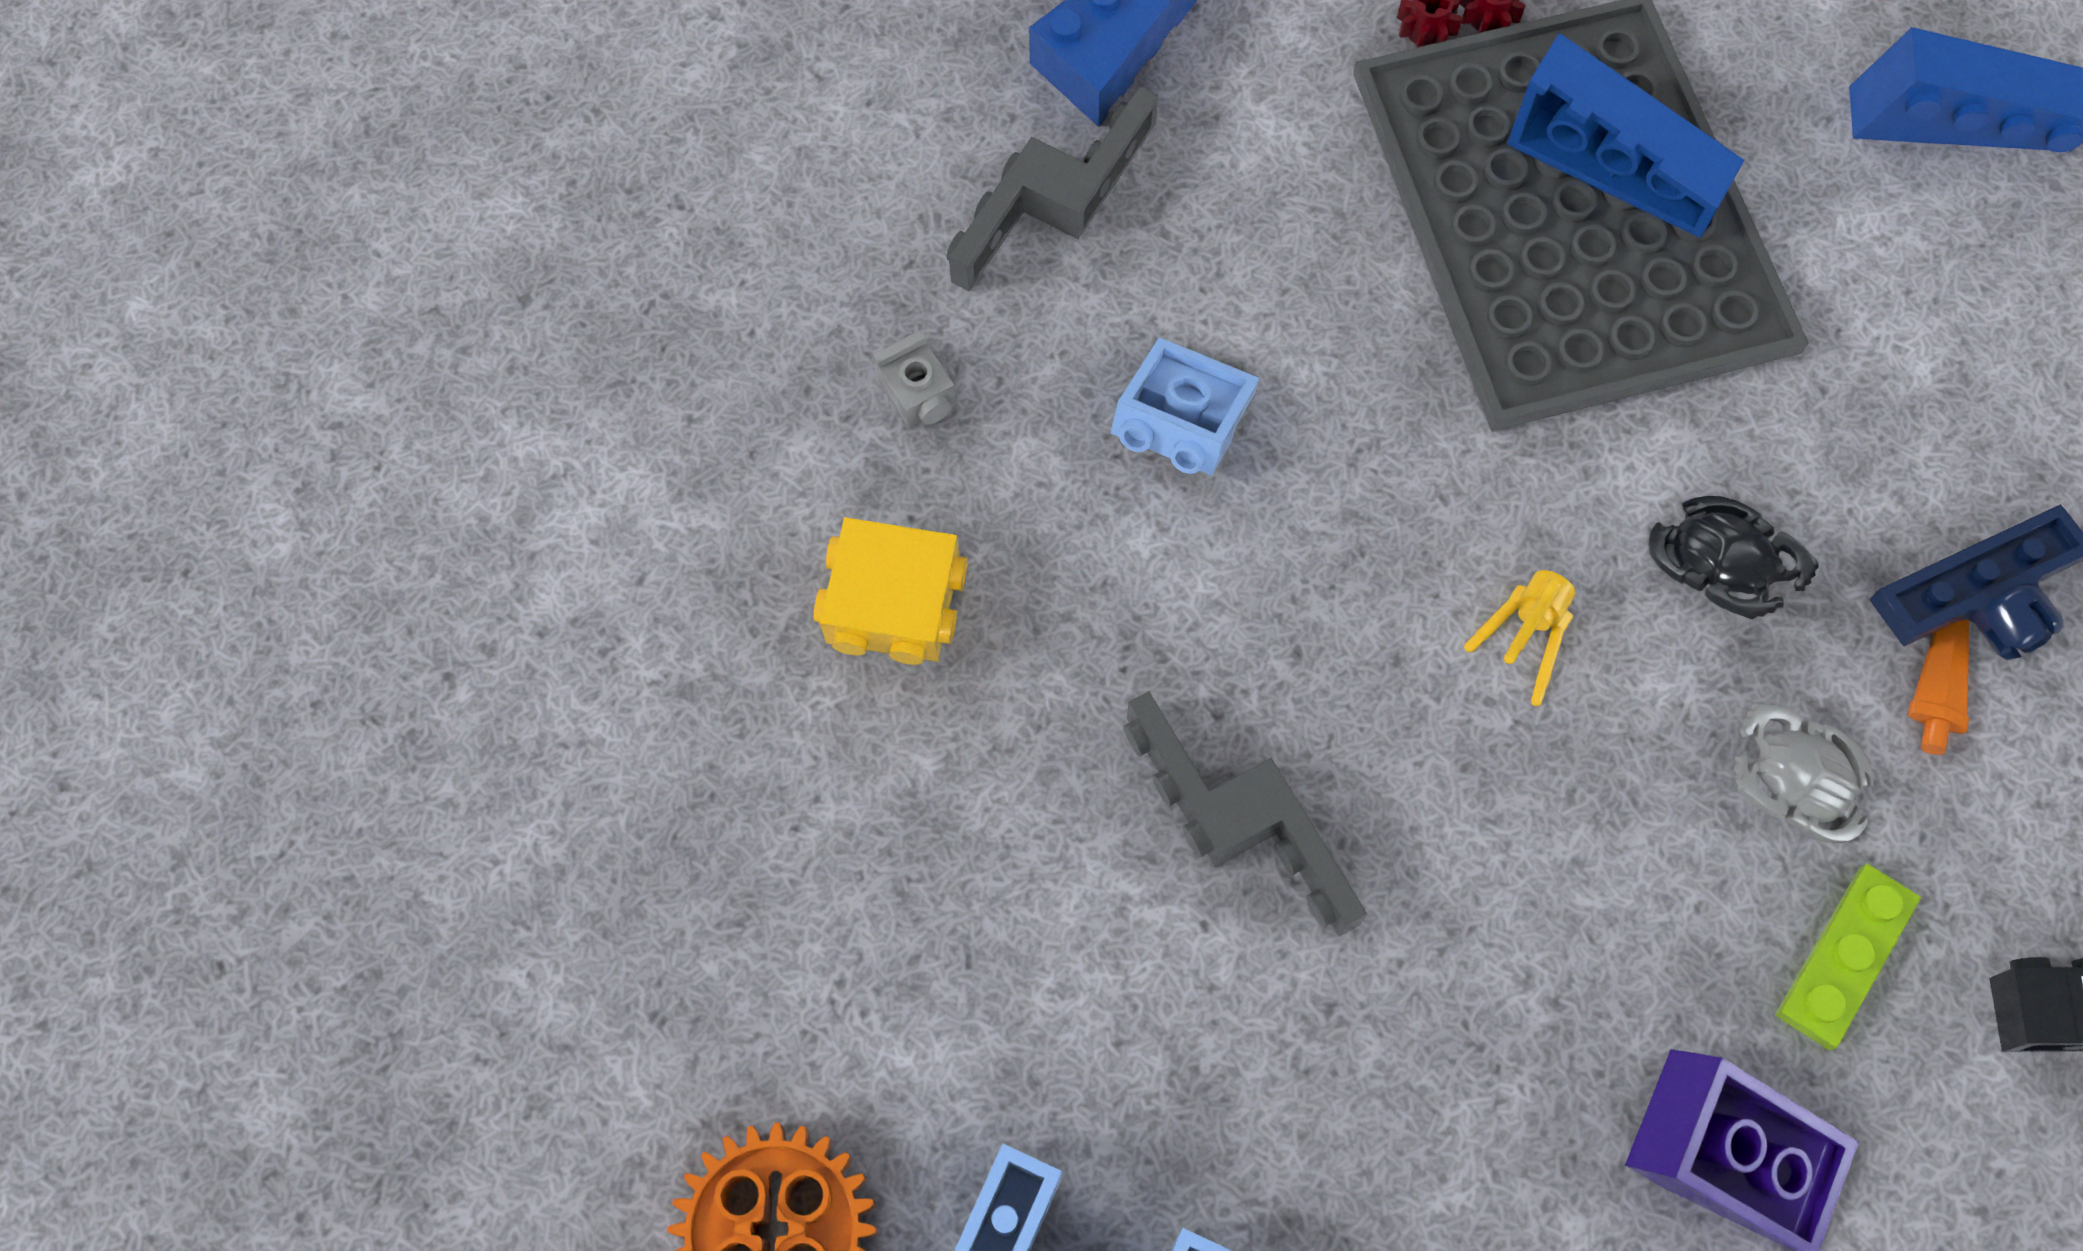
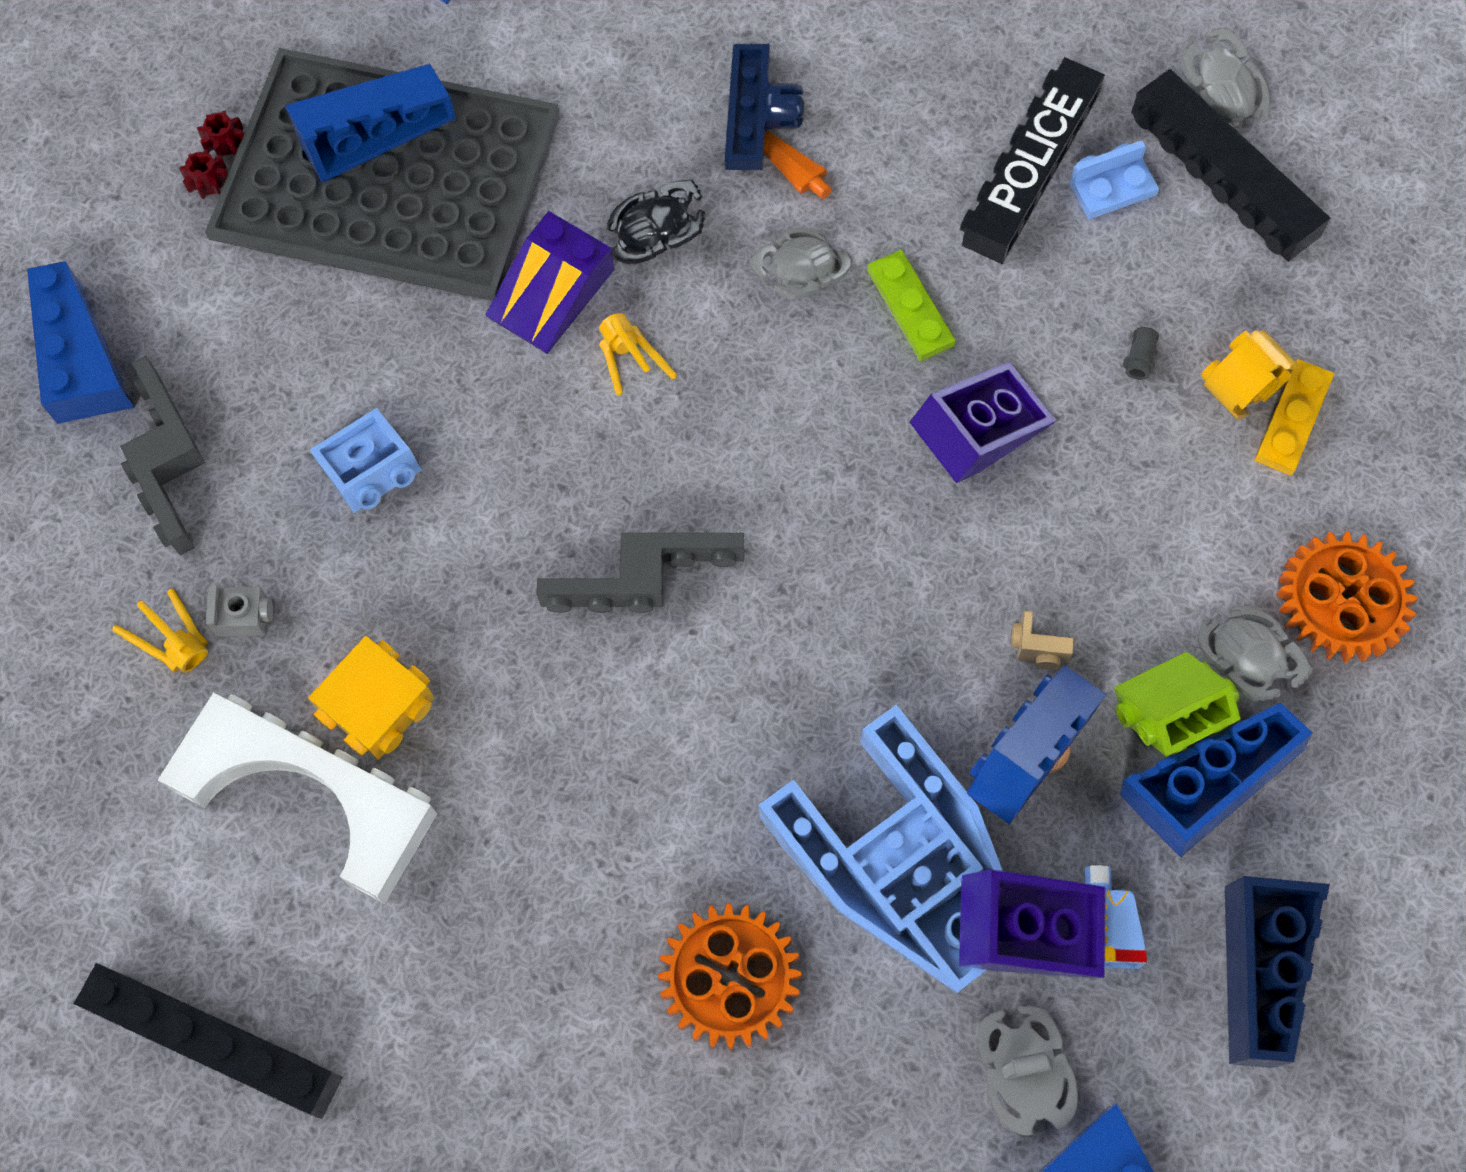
camera: 60 degrees left, 0 degrees up
(397, 660) = (209, 1040): none -> black brick
(752, 689) = (234, 742): none -> white arch
(837, 352) = (183, 649): none -> yellow plant
(1559, 478) = (550, 282): none -> dark purple slope

